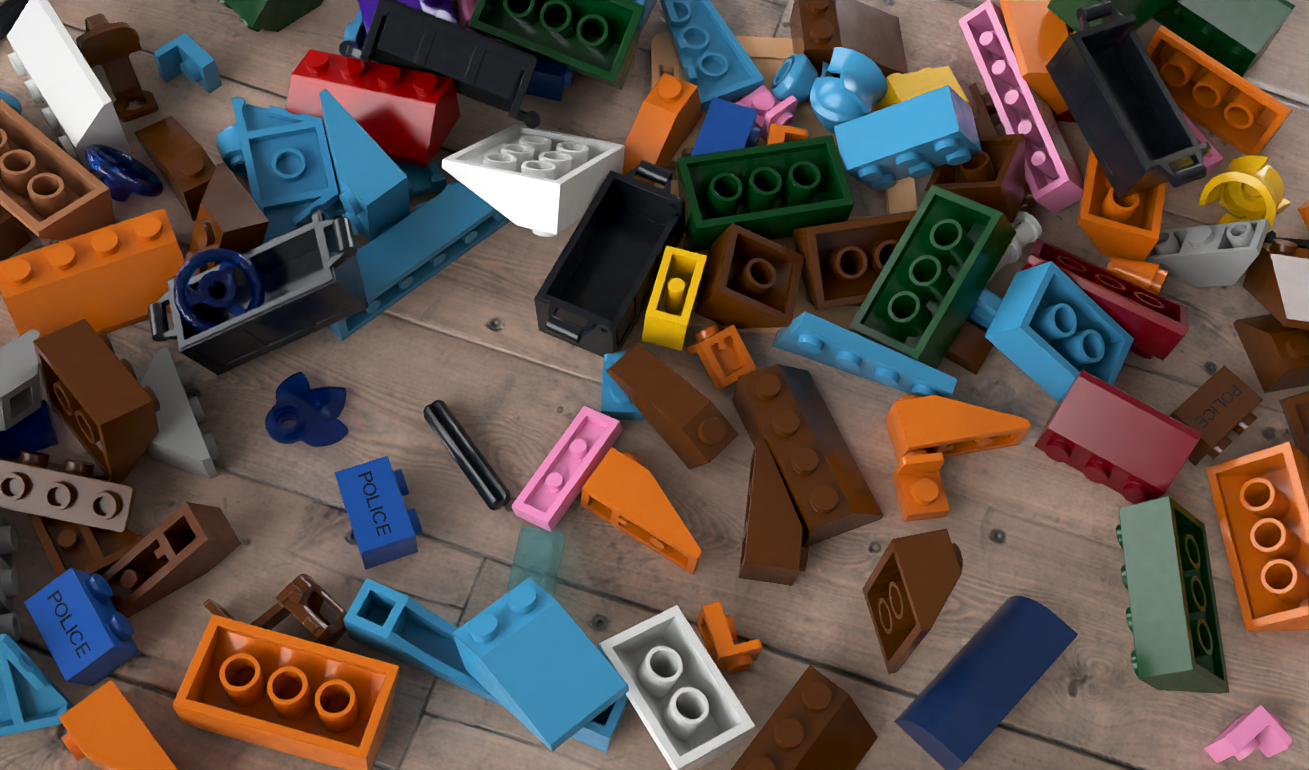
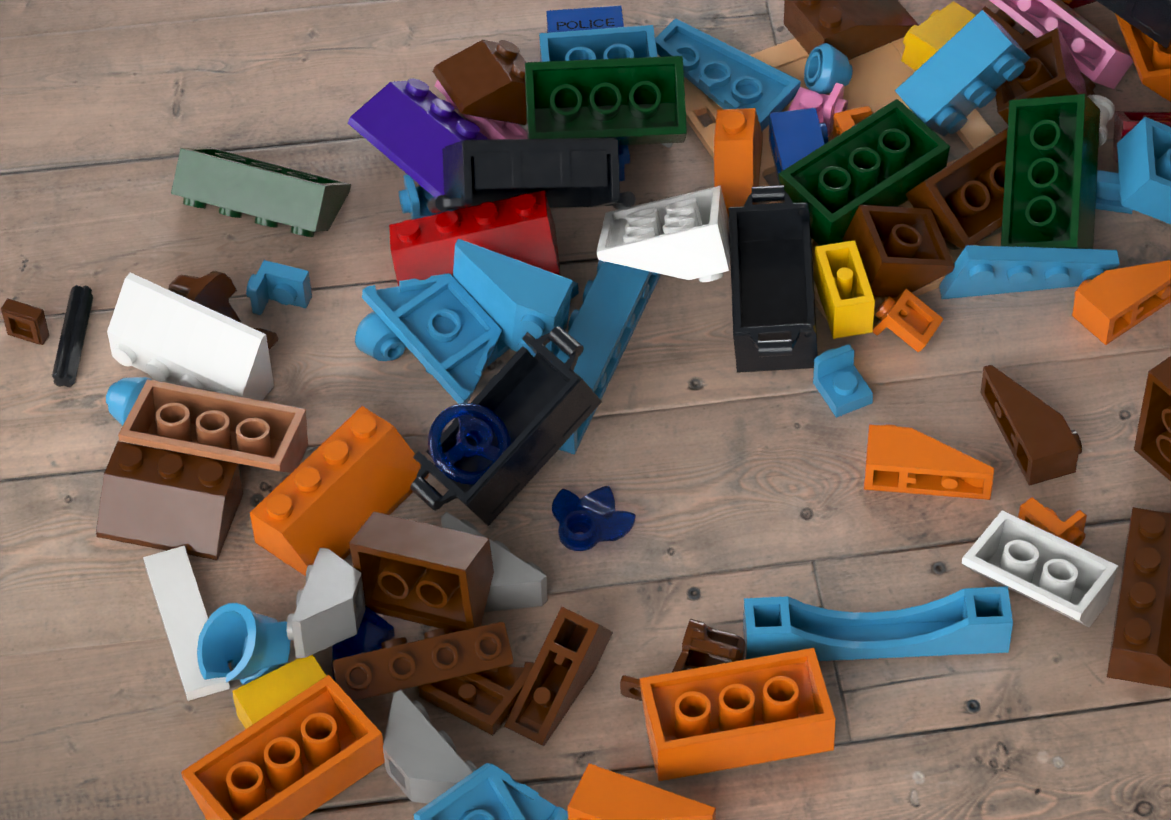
camera: 15 degrees left, 10 degrees down
(82, 626) = (532, 743): blue brick -> none
(121, 173) = (294, 397): clear blue piece -> none
(179, 161) = (337, 371): reddish brown slope -> none
(226, 218) = (420, 391): reddish brown slope -> none
(377, 511) = (706, 561): blue brick -> none
(466, 455) = (746, 490): black axle -> none
(537, 558) = (863, 554): clear light blue plate -> none
(538, 663) = (922, 593): dark azure slope -> none
(567, 468) = (838, 461): bright pink plate -> none
(673, 407) = (901, 373): reddish brown slope -> none
(809, 451) = (983, 337): reddish brown slope -> none
(852, 94) = (887, 66): dark azure helmet -> none
(920, 486) = (1132, 349): orange bracket -> none
(969, 348) = (1111, 226): reddish brown tile -> none

